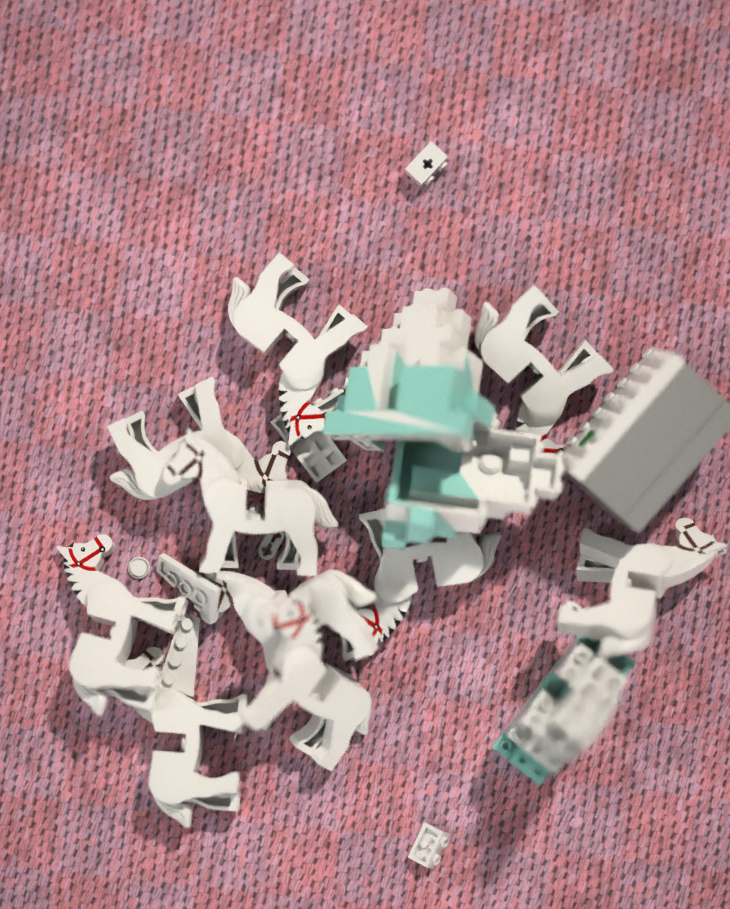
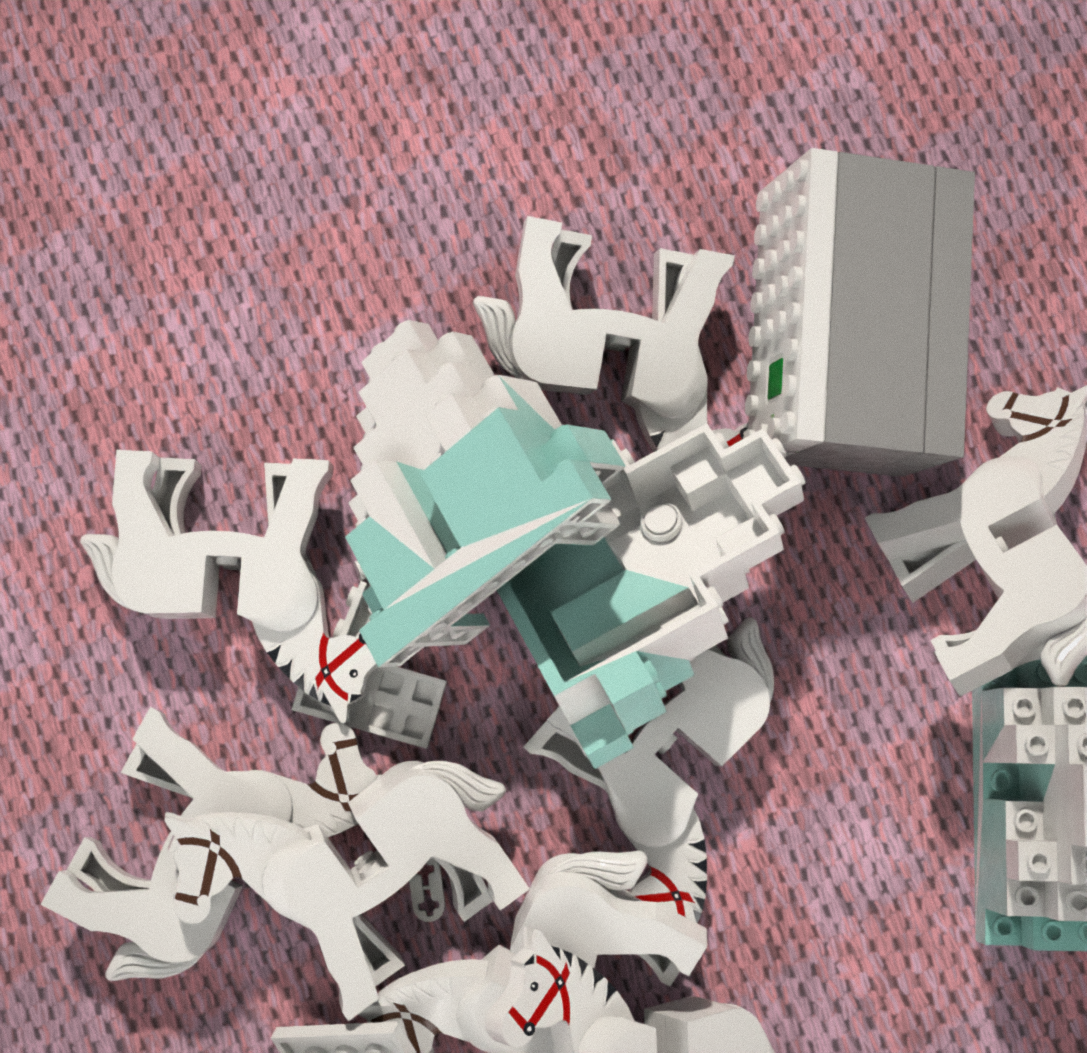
camera: 40 degrees left, 5 degrees down
(432, 154) = (238, 158): white brick -> none

